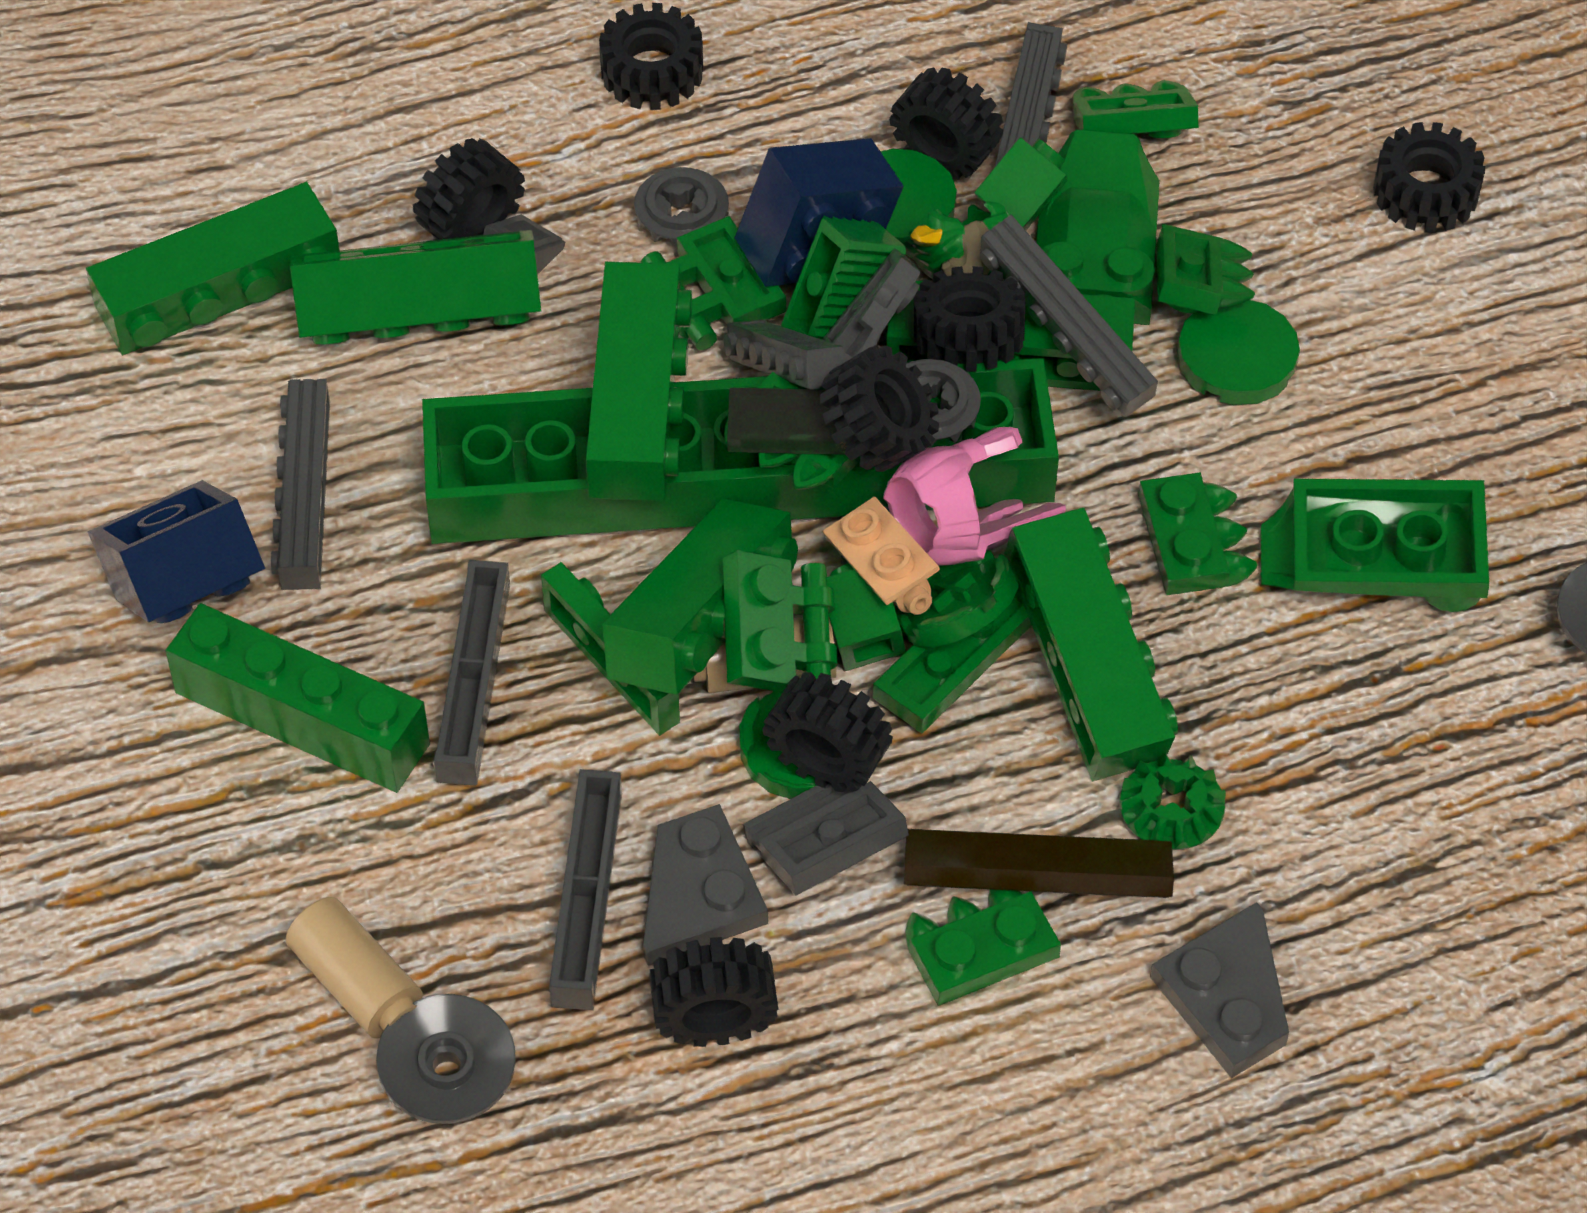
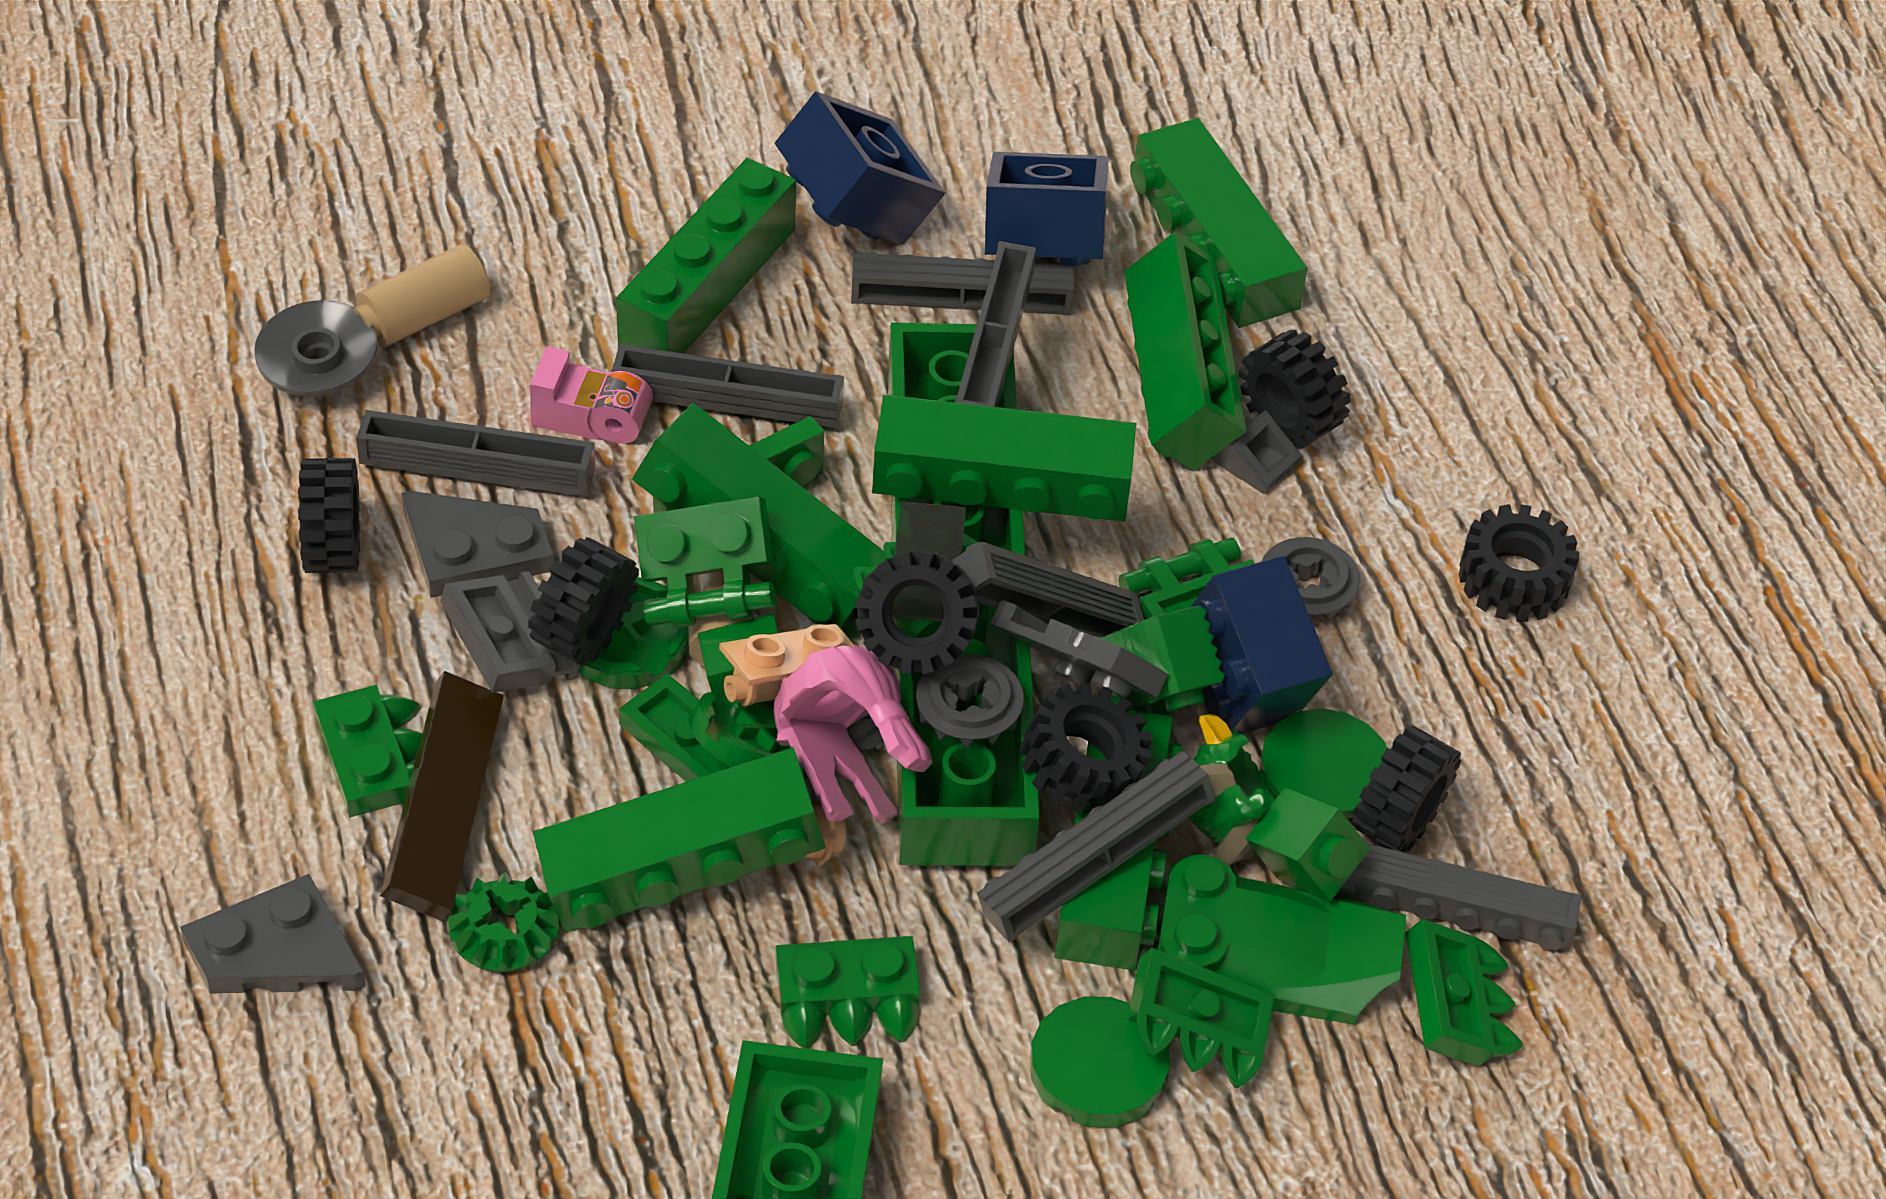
camera: 90 degrees right, 5 degrees down
(224, 389) = (1048, 204): none -> dark blue brick
(466, 395) = (997, 325): none -> dark grey piece
(499, 796) = (587, 400): none -> bright pink leg

